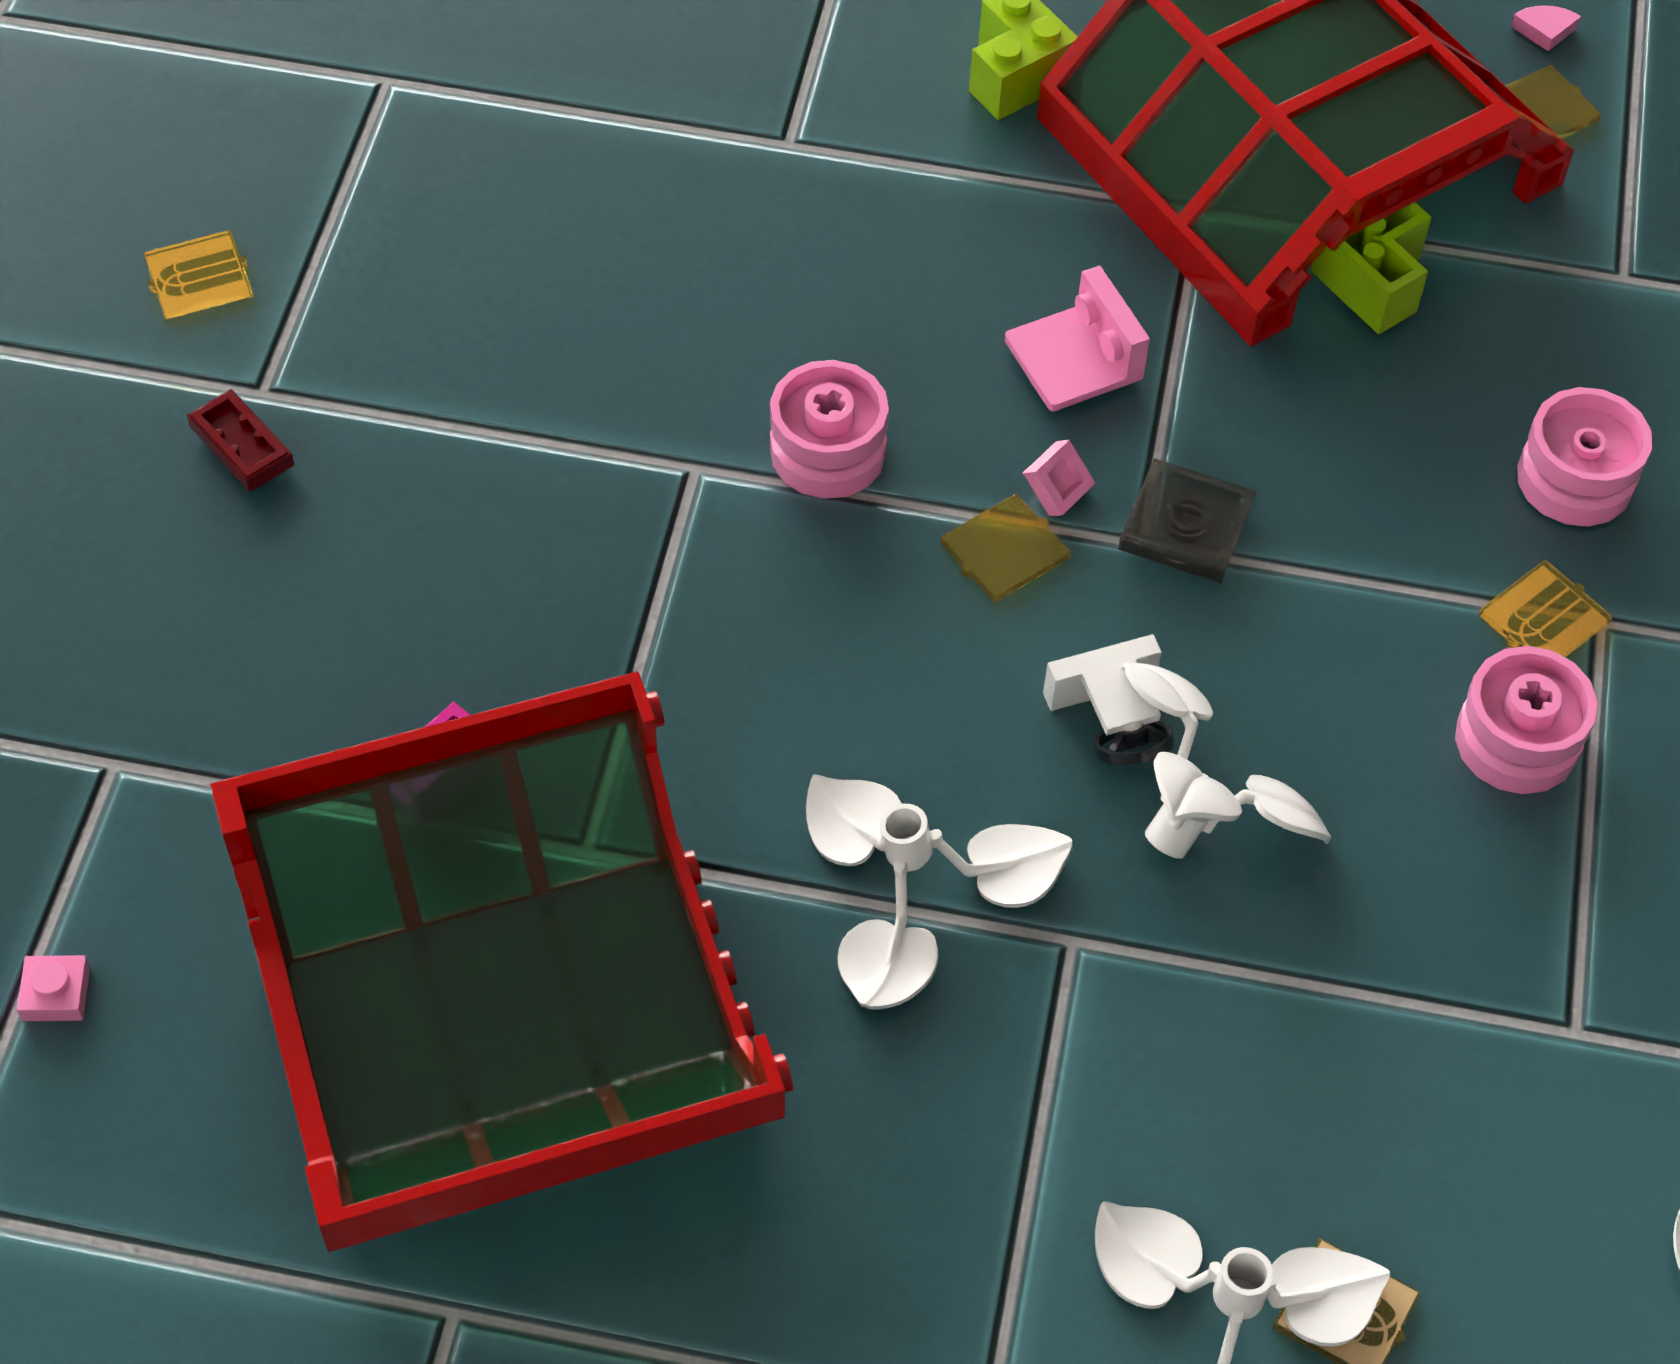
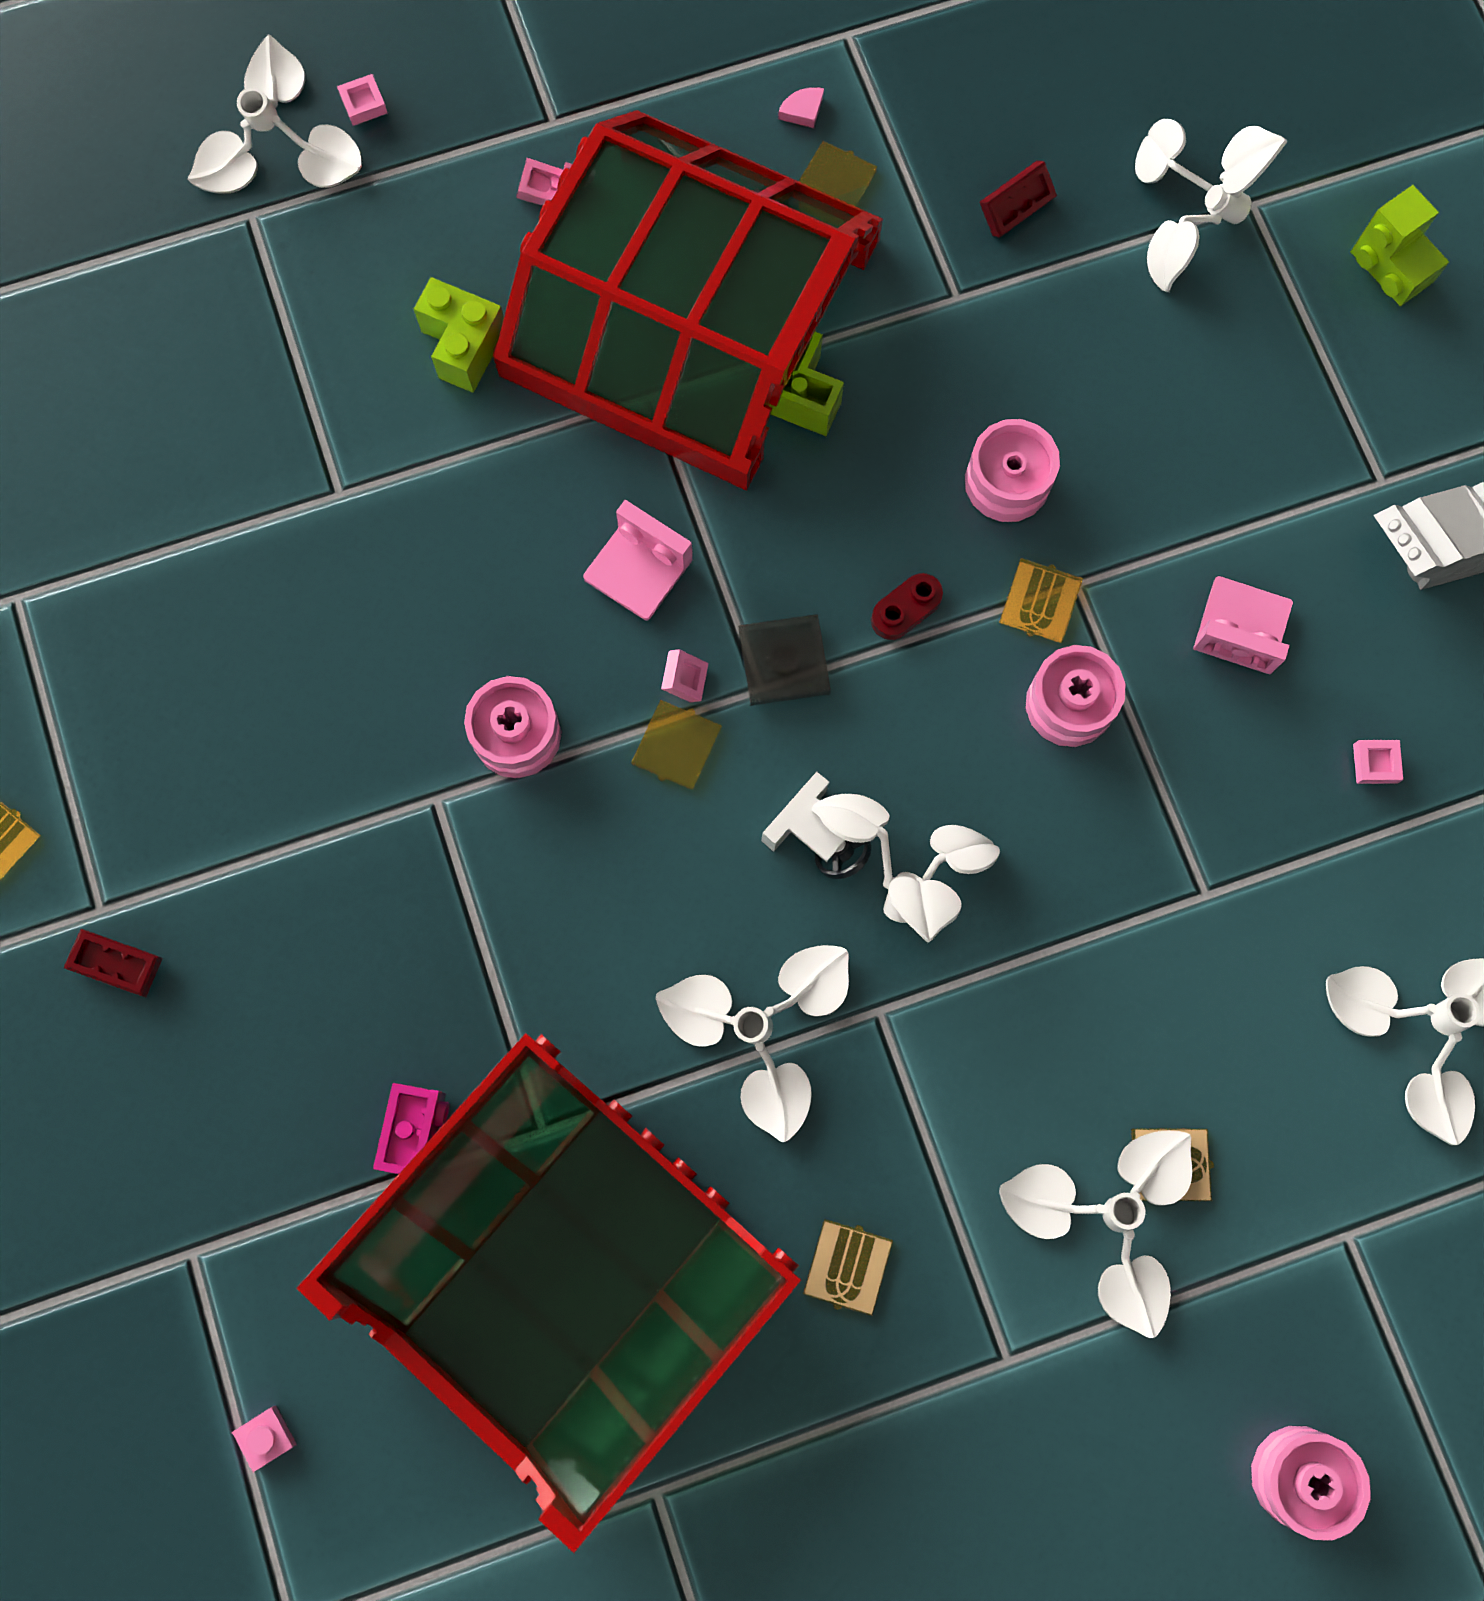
camera: 30 degrees left, 20 degrees up
(853, 1194) = (848, 1267): none -> piece
(1374, 542) = (909, 606): none -> dark red plate

